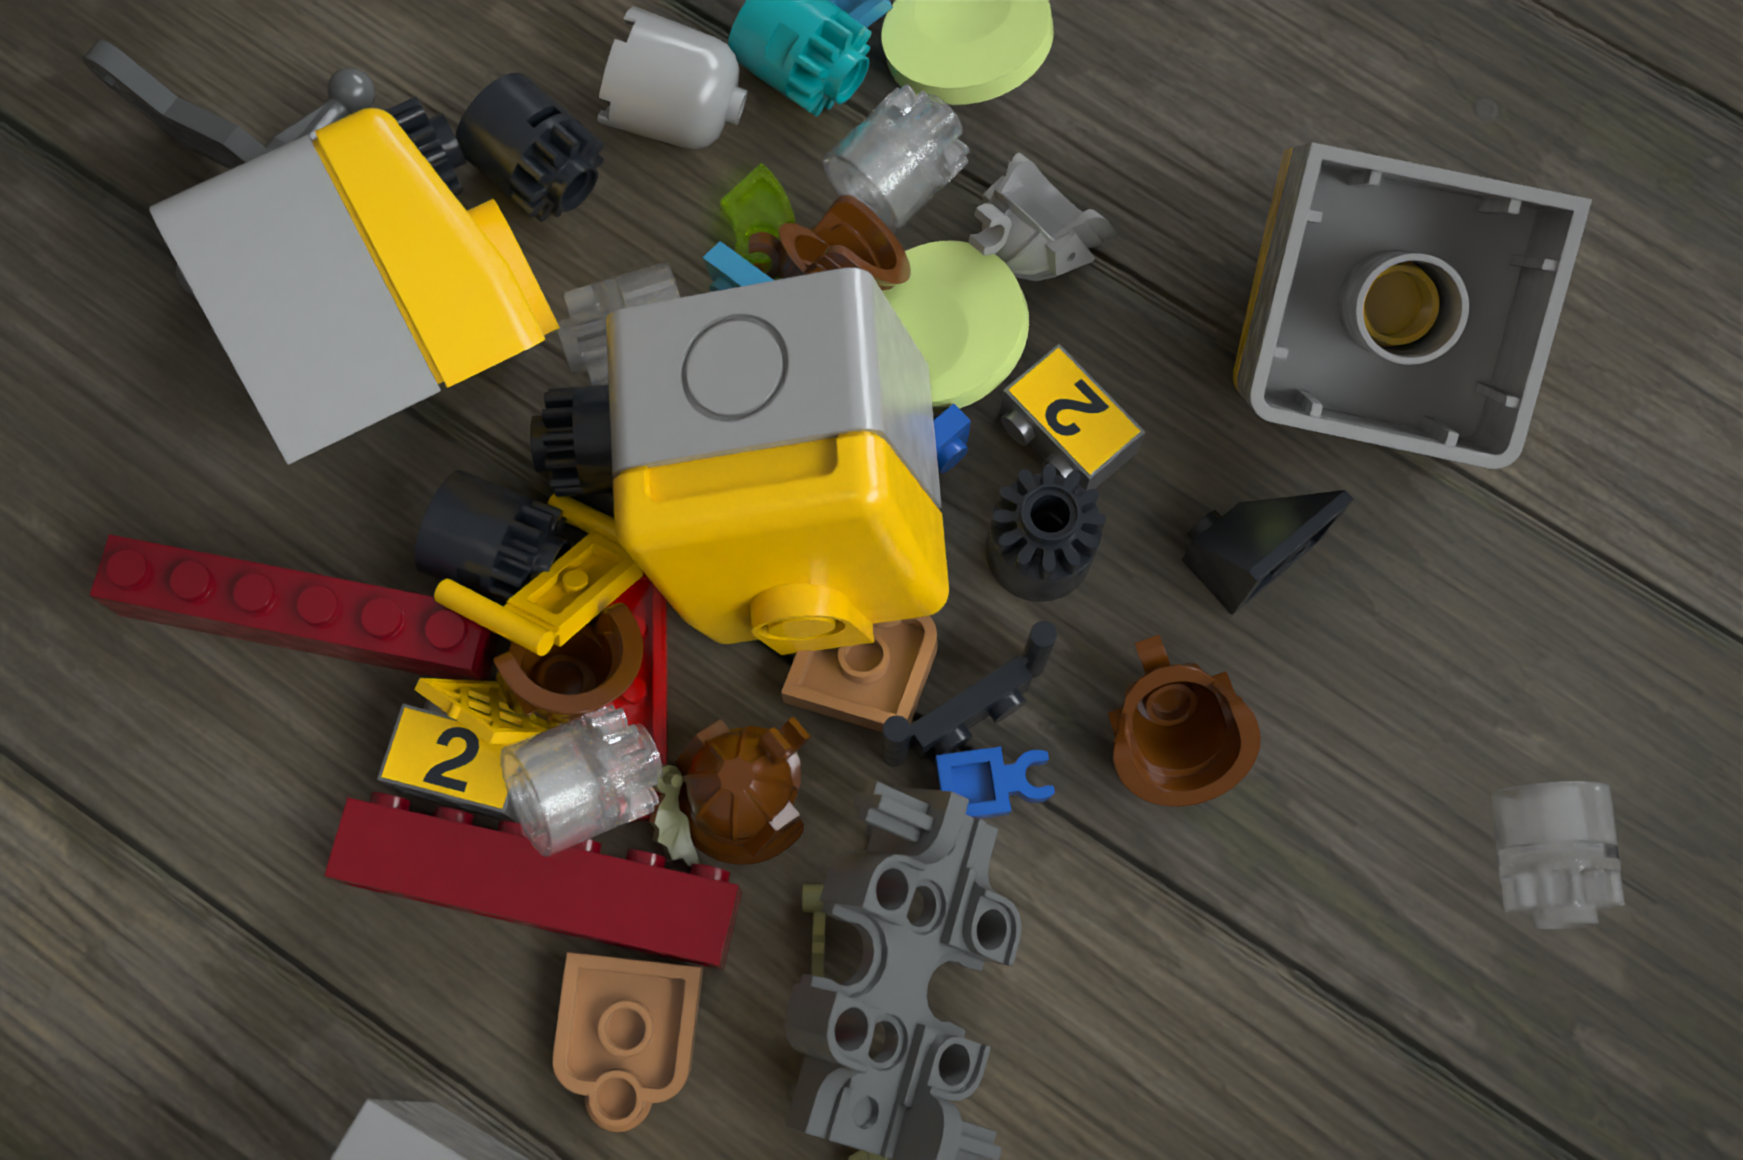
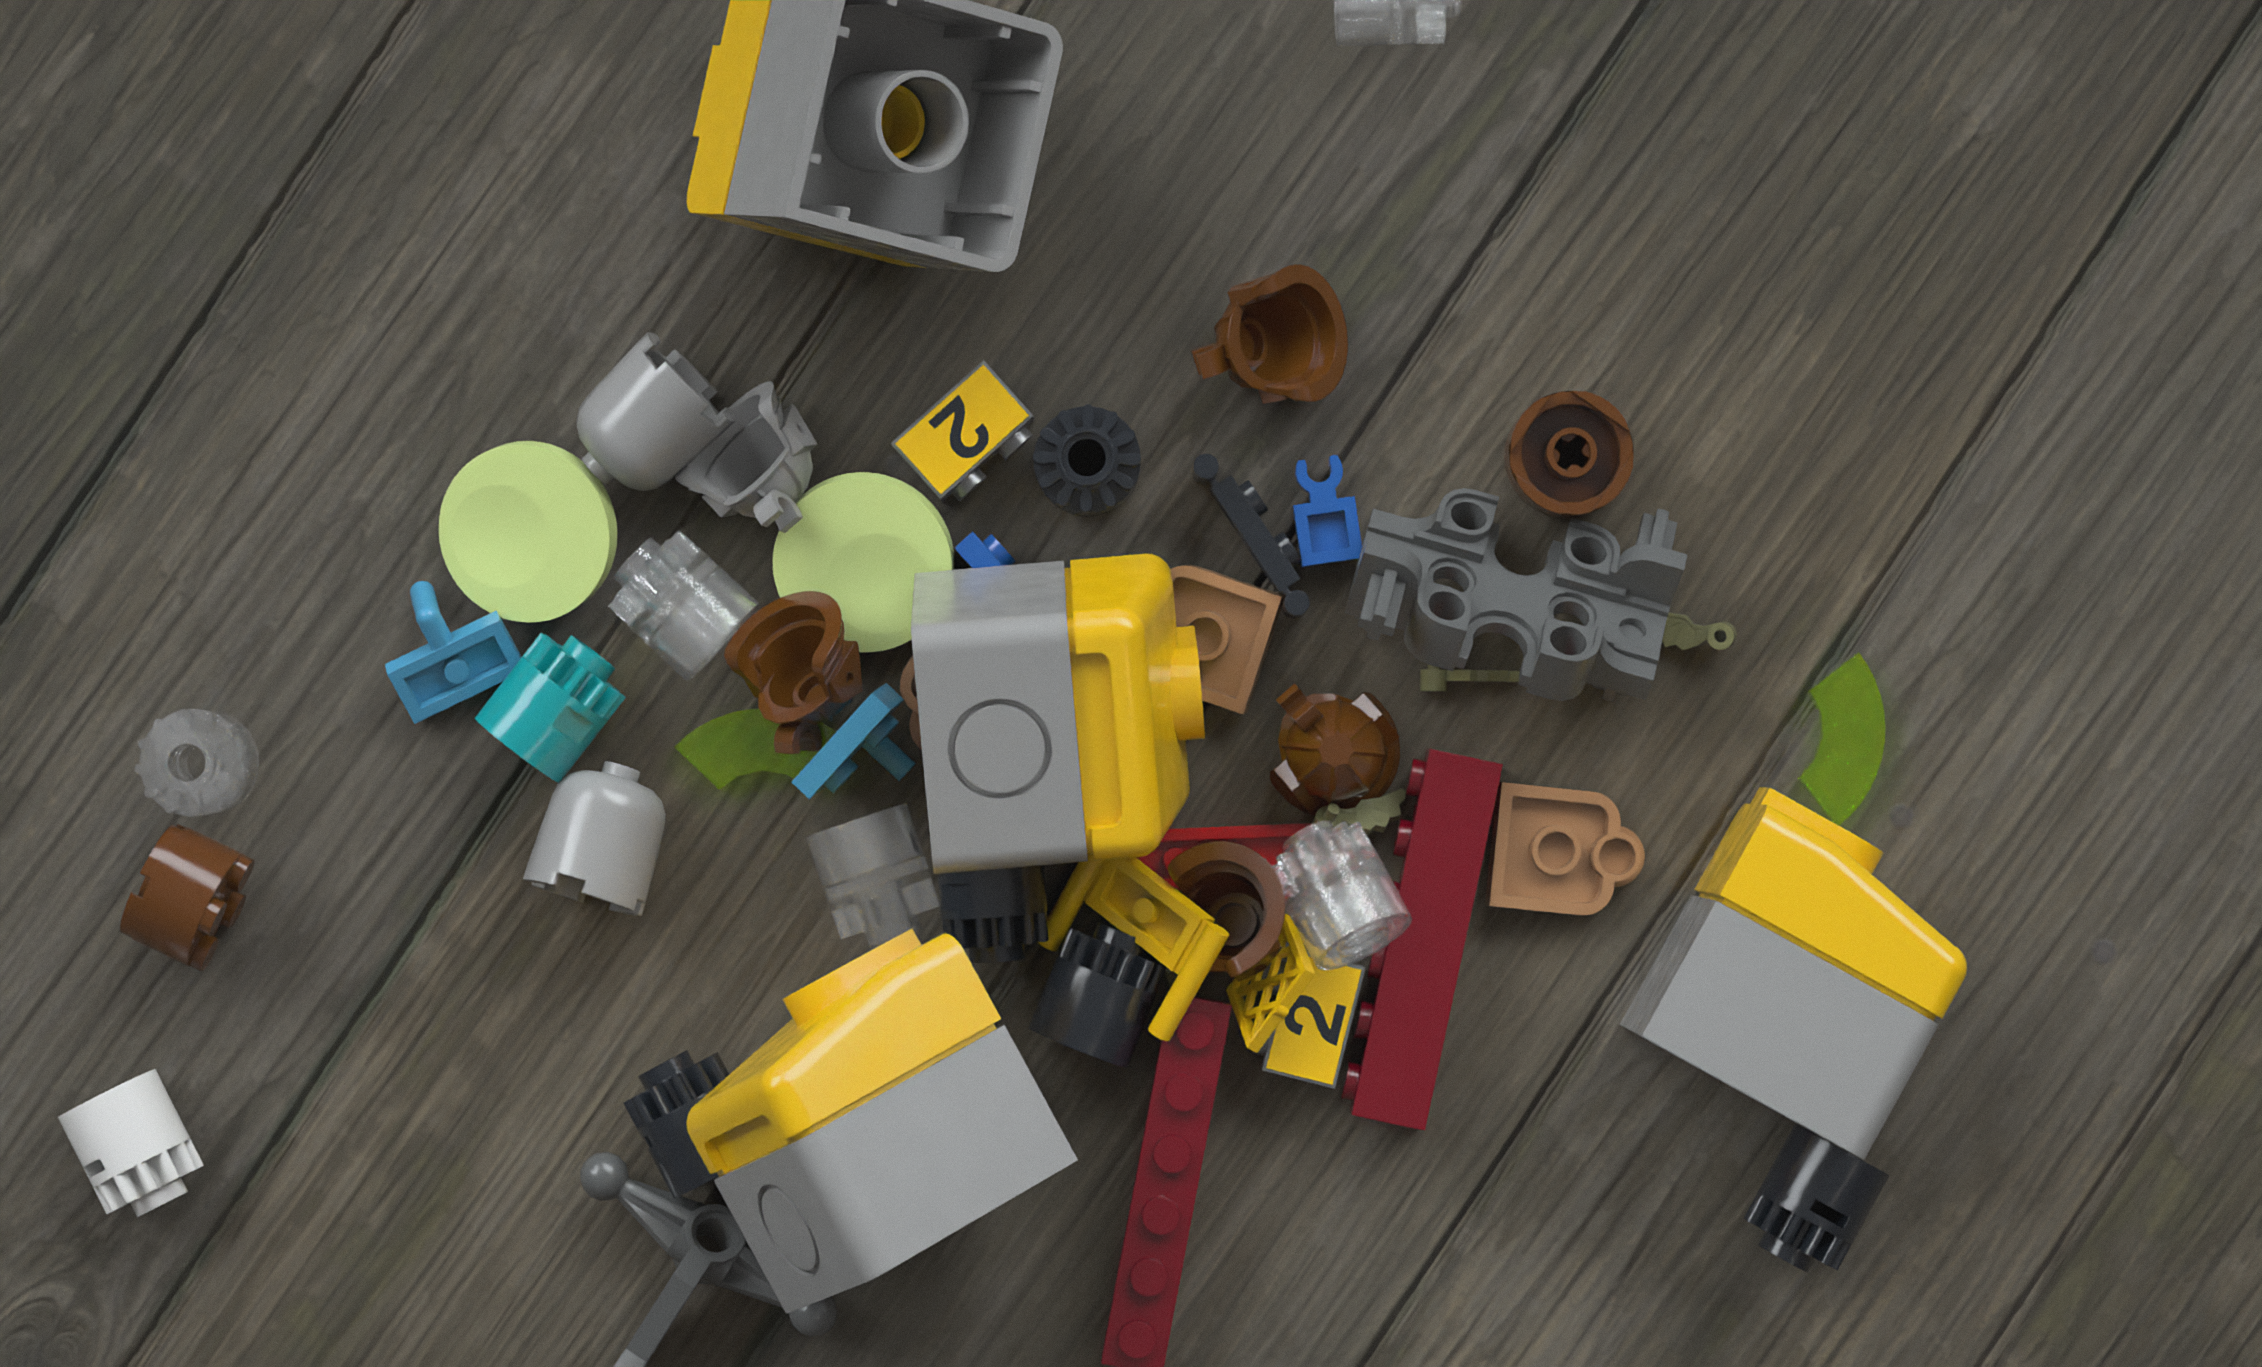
camera: 90 degrees left, 15 degrees up
(530, 146) = (675, 981): black gear -> none
(1081, 130) = (648, 418): none -> light grey cylinder
(1099, 1038) = (1604, 449): none -> reddish brown brick
(1258, 542) = (1094, 255): black slope -> none

